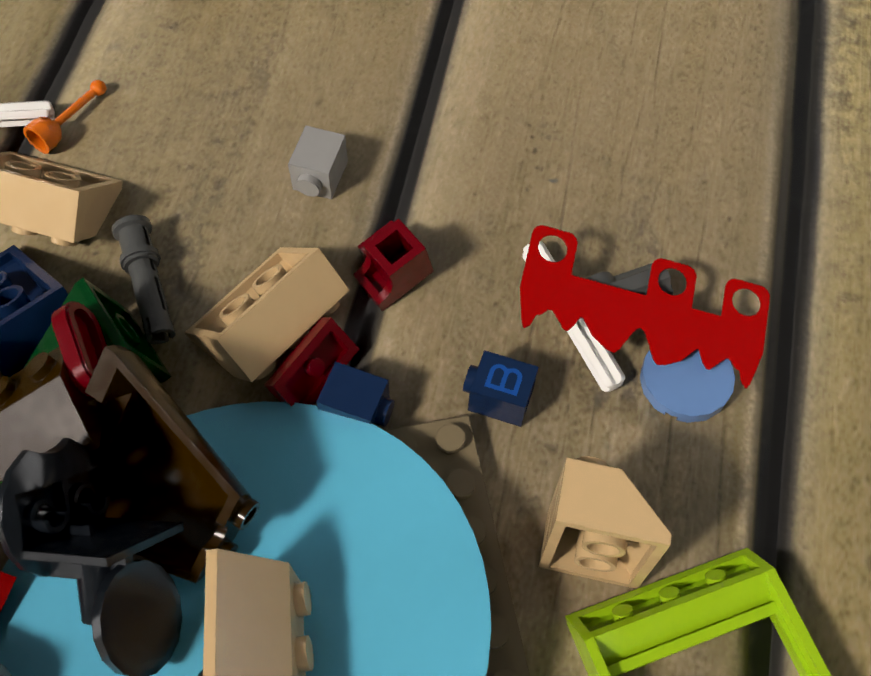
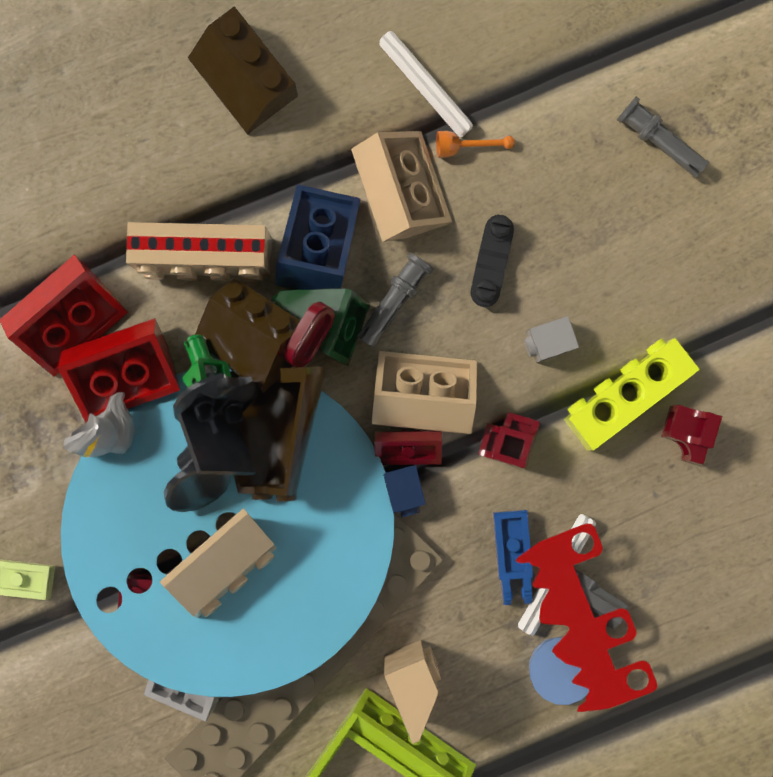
camera: 55 degrees right, 25 degrees up
(192, 165) = (492, 261): none -> black piece
(432, 134) = (675, 369): none -> neon yellow brick
(500, 387) = (472, 567): dark blue brick -> none
(501, 332) = (511, 541): none -> blue hinge
(512, 102) = (692, 431): none -> dark red brick

